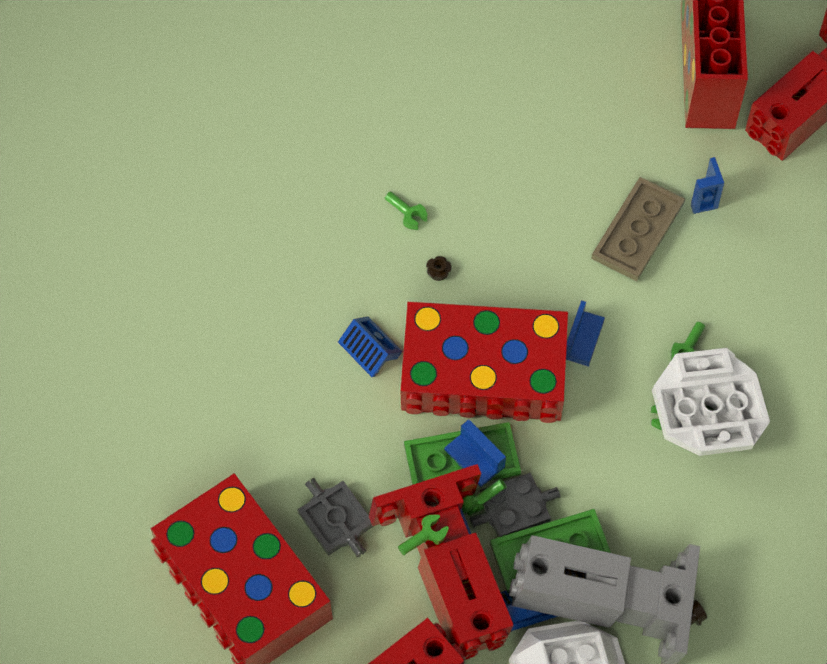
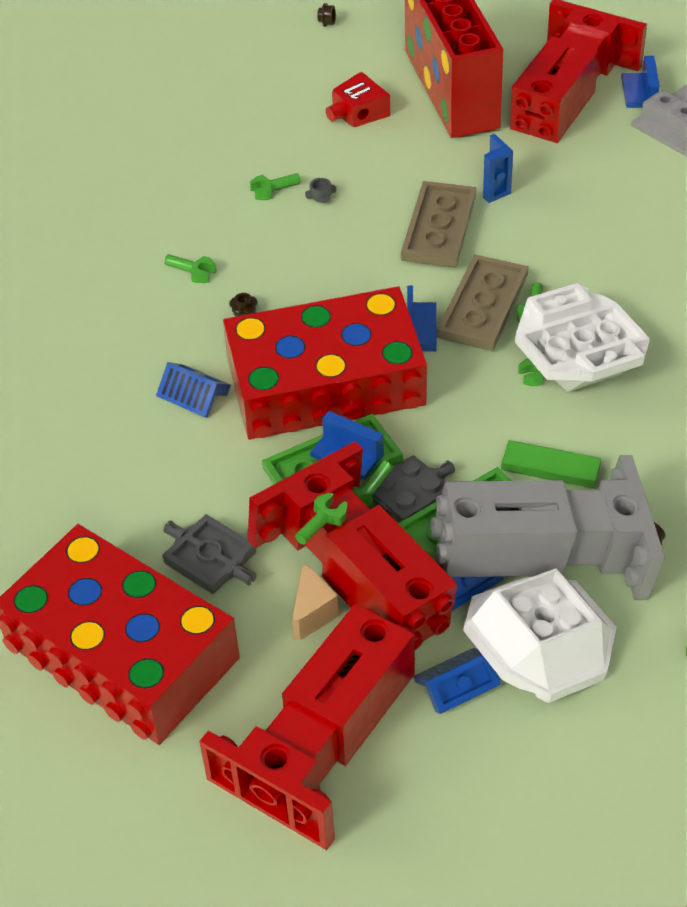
camera: 15 degrees left, 15 degrees down
(402, 592) = (314, 604): none -> tan slope
(503, 136) = (264, 187): none -> bright green bar
(546, 151) = (320, 190): none -> dark grey plate
(613, 60) = (359, 101): none -> red torso
(642, 516) = (551, 464): none -> bright green tile
(645, 329) = (483, 302): none -> dark tan plate

